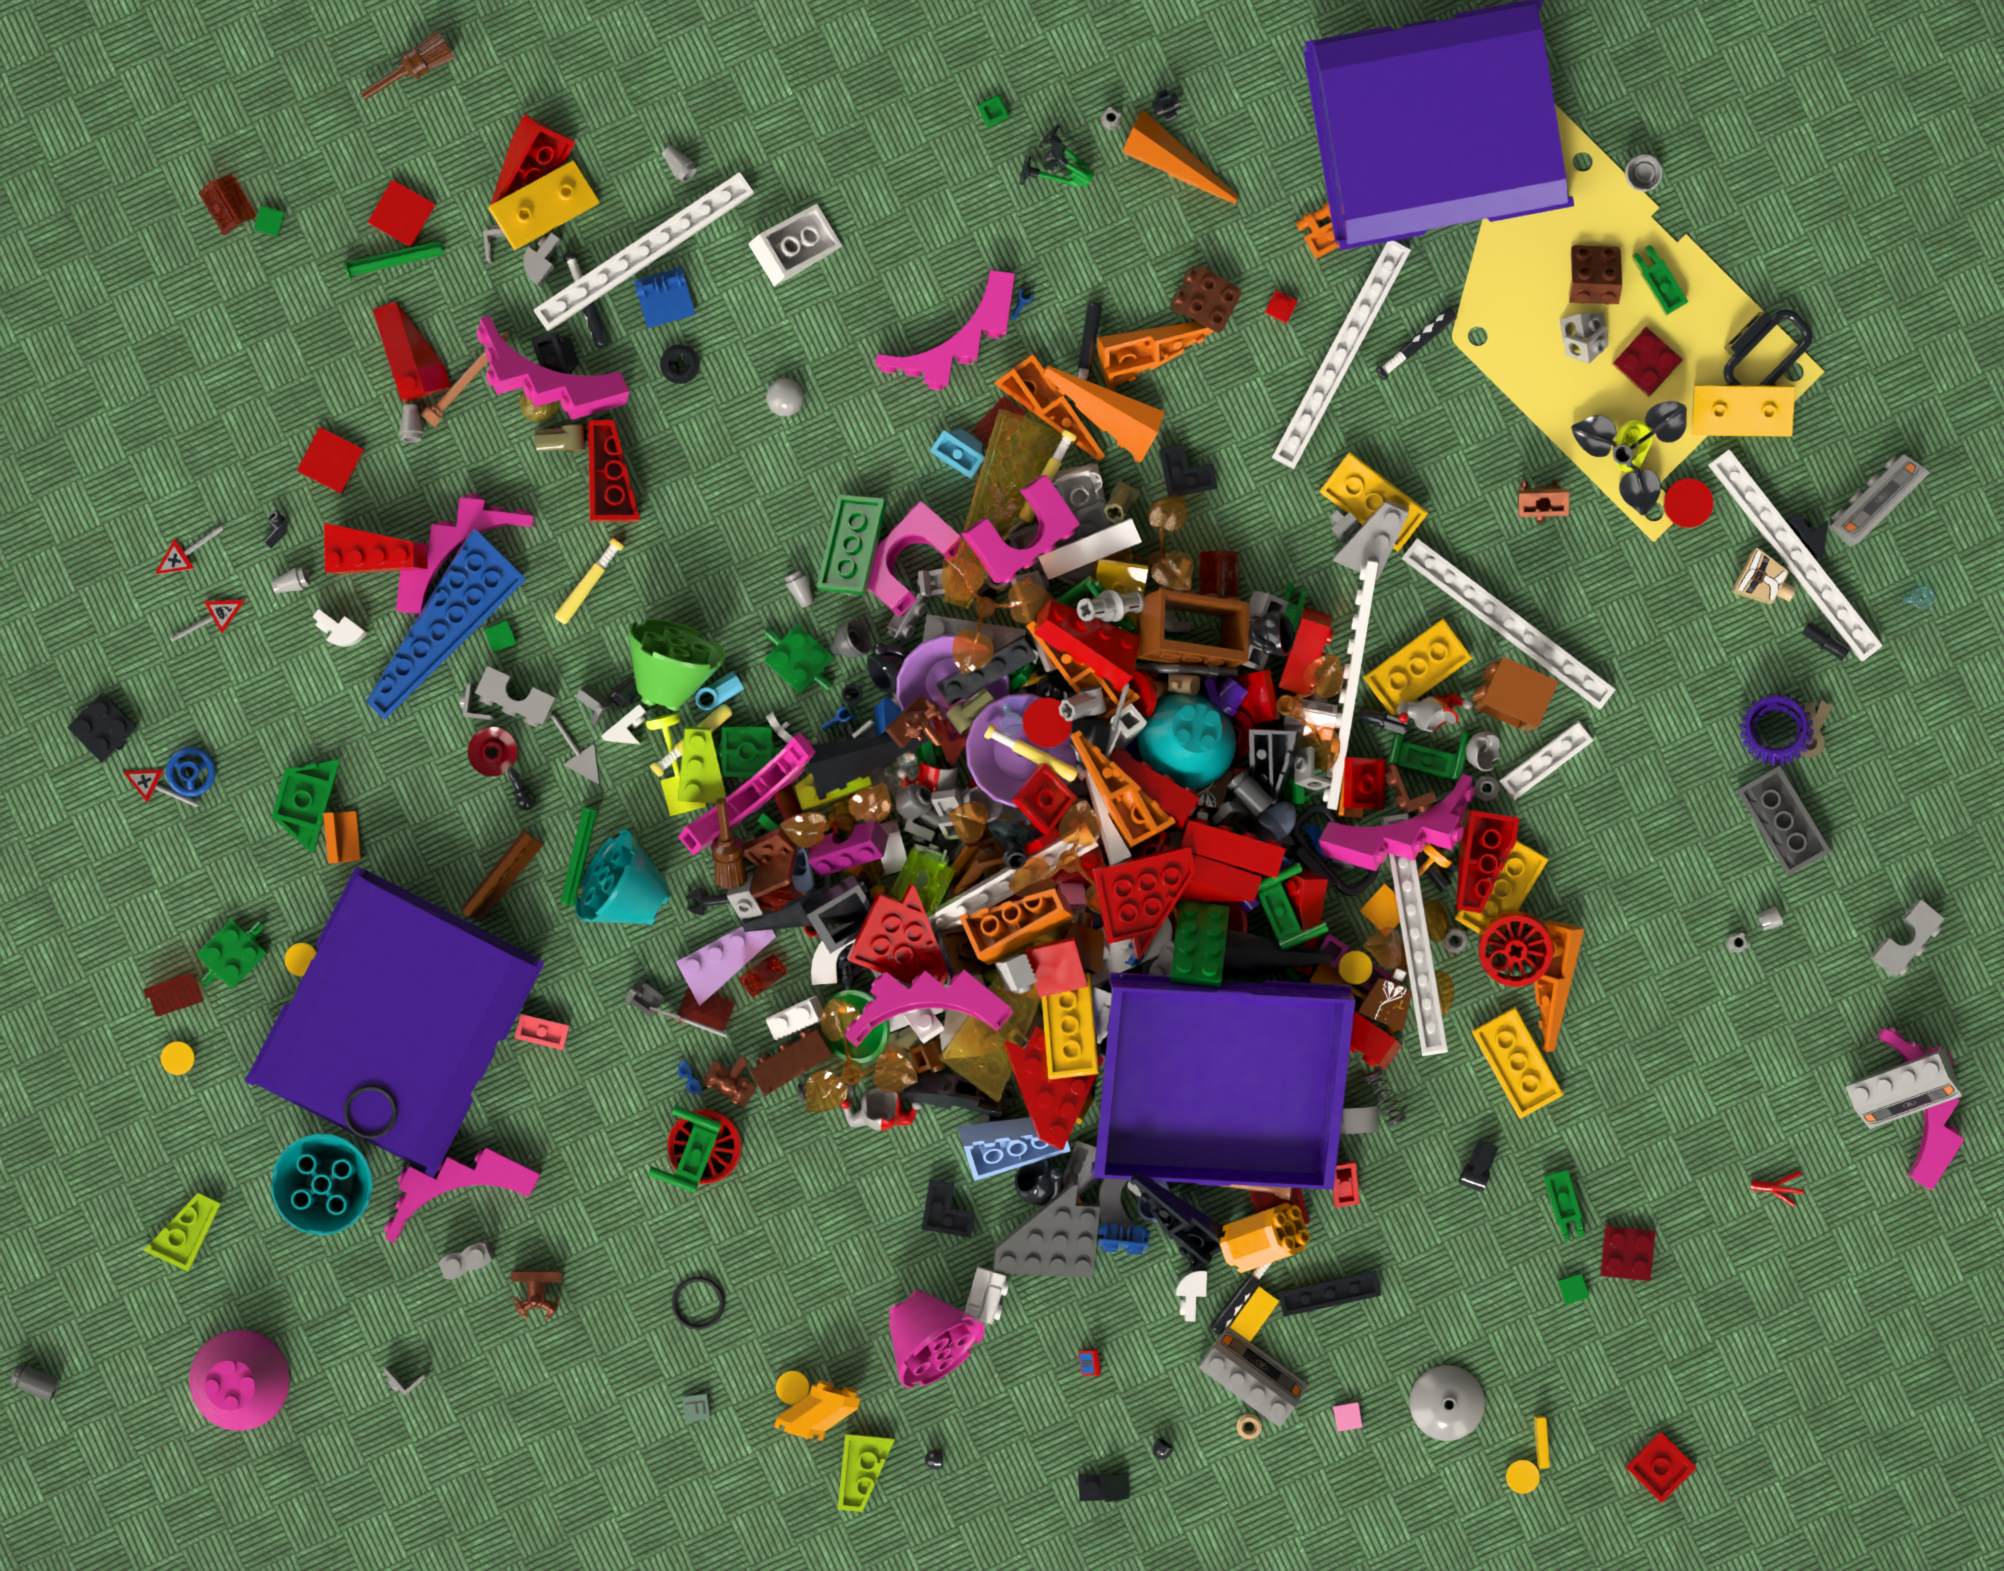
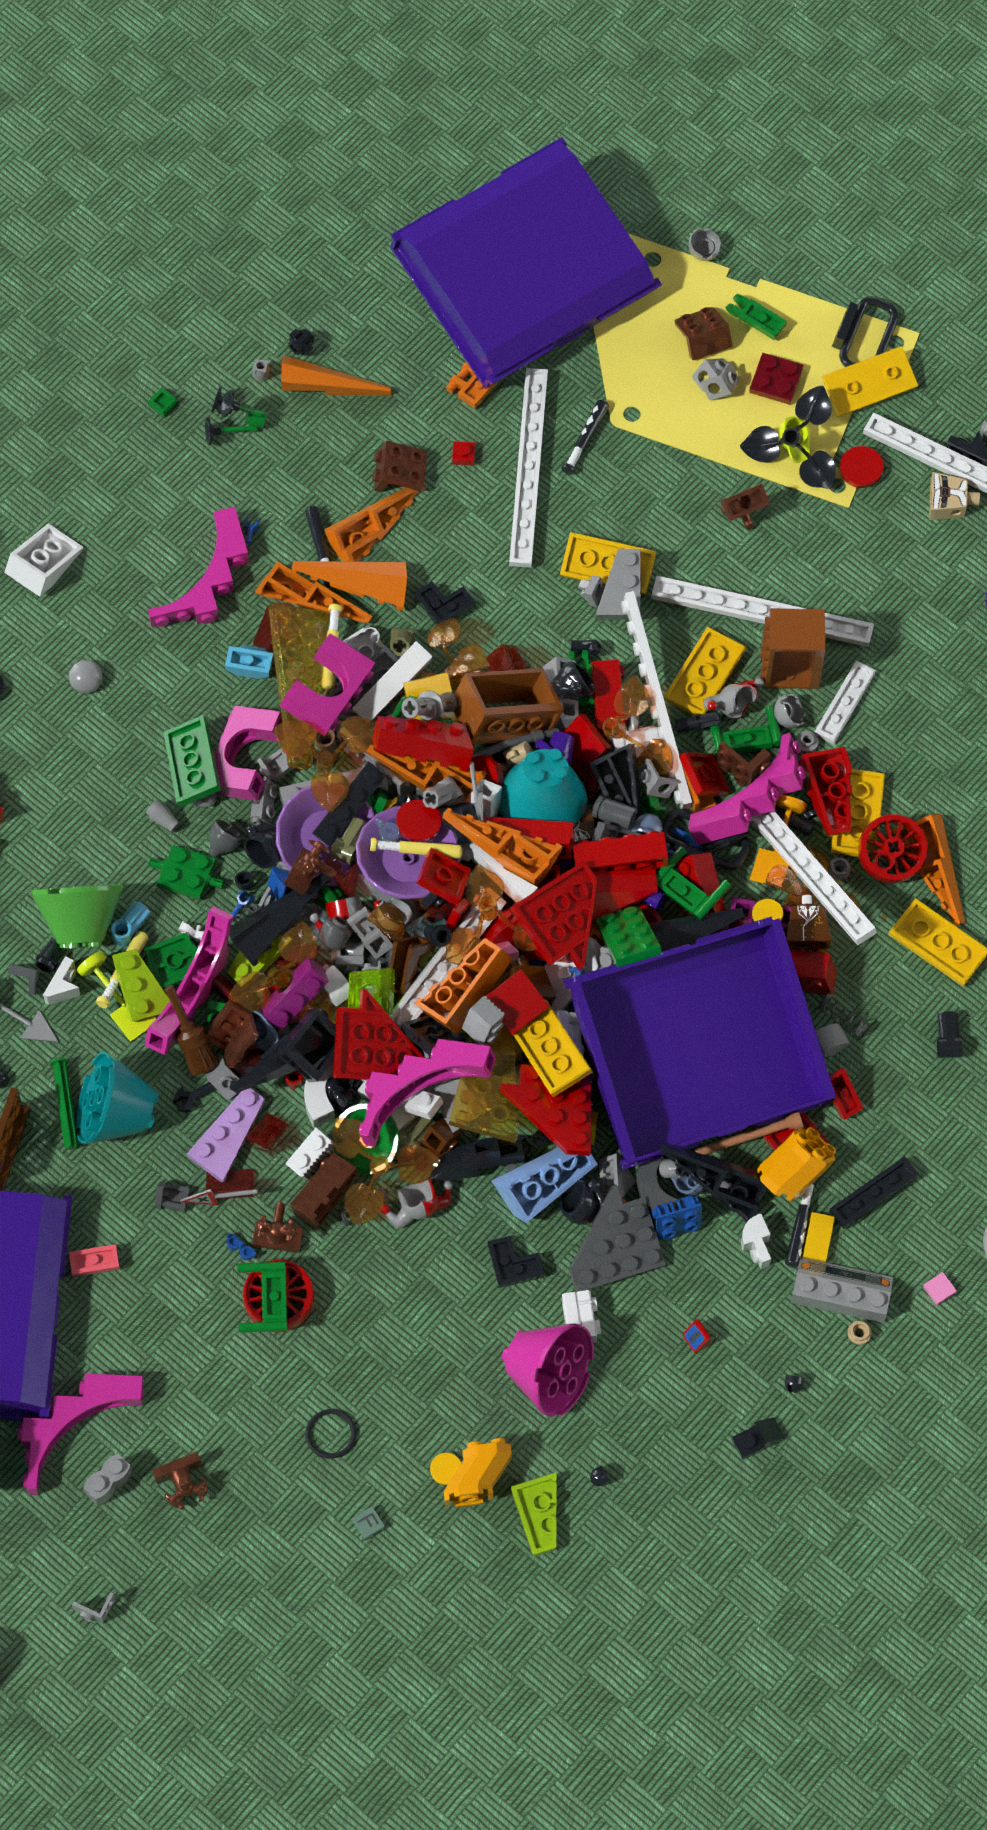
camera: 25 degrees left, 20 degrees down
(1316, 589) = (592, 646): none -> black arm

